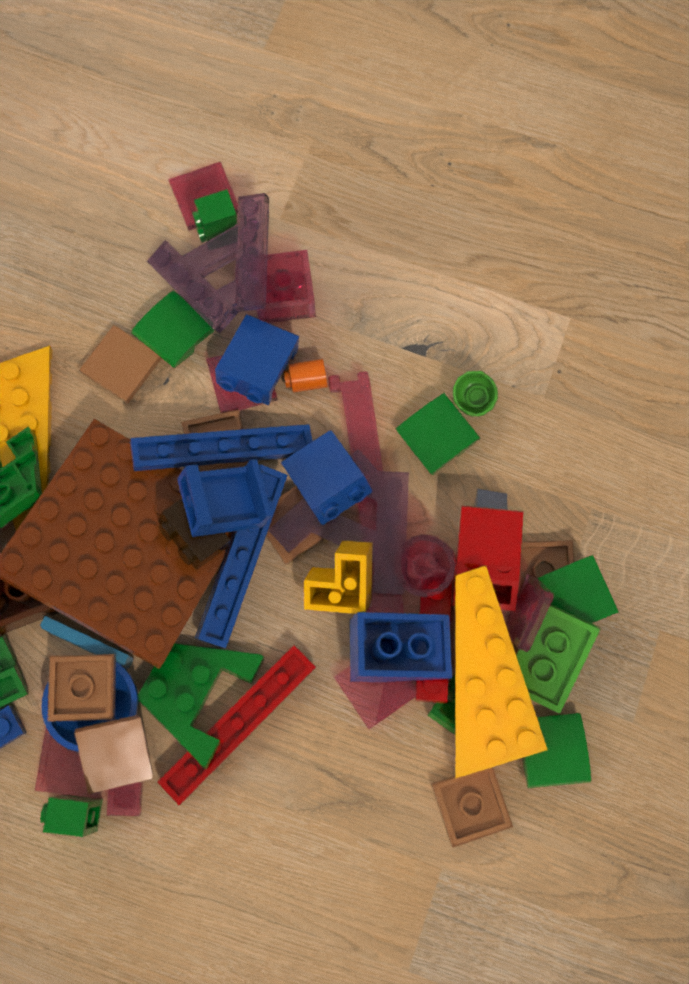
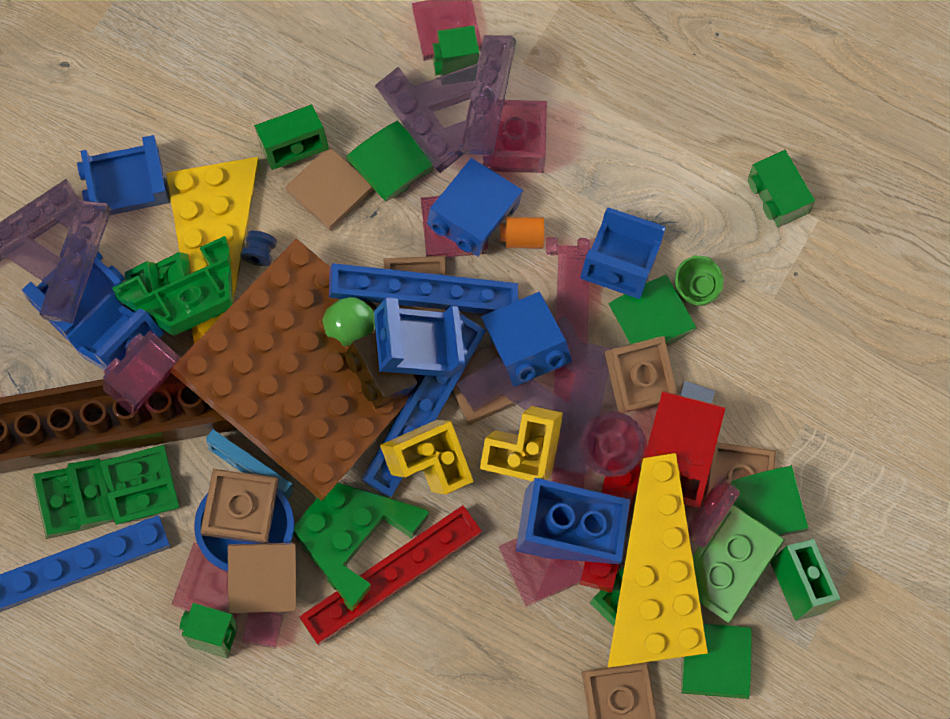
camera: 10 degrees right, 5 degrees down
(63, 432) = (258, 248): none -> dark blue wheel
(76, 322) = (291, 137): none -> green brick
(155, 490) = (348, 320): none -> bright green hair
(255, 600) = (434, 451): none -> yellow brick
(401, 380) = (623, 253): none -> blue panel
(437, 491) = (640, 373): none -> medium nougat tile
(533, 295) = (780, 188): none -> green brick
(623, 661) = (804, 580): none -> green brick

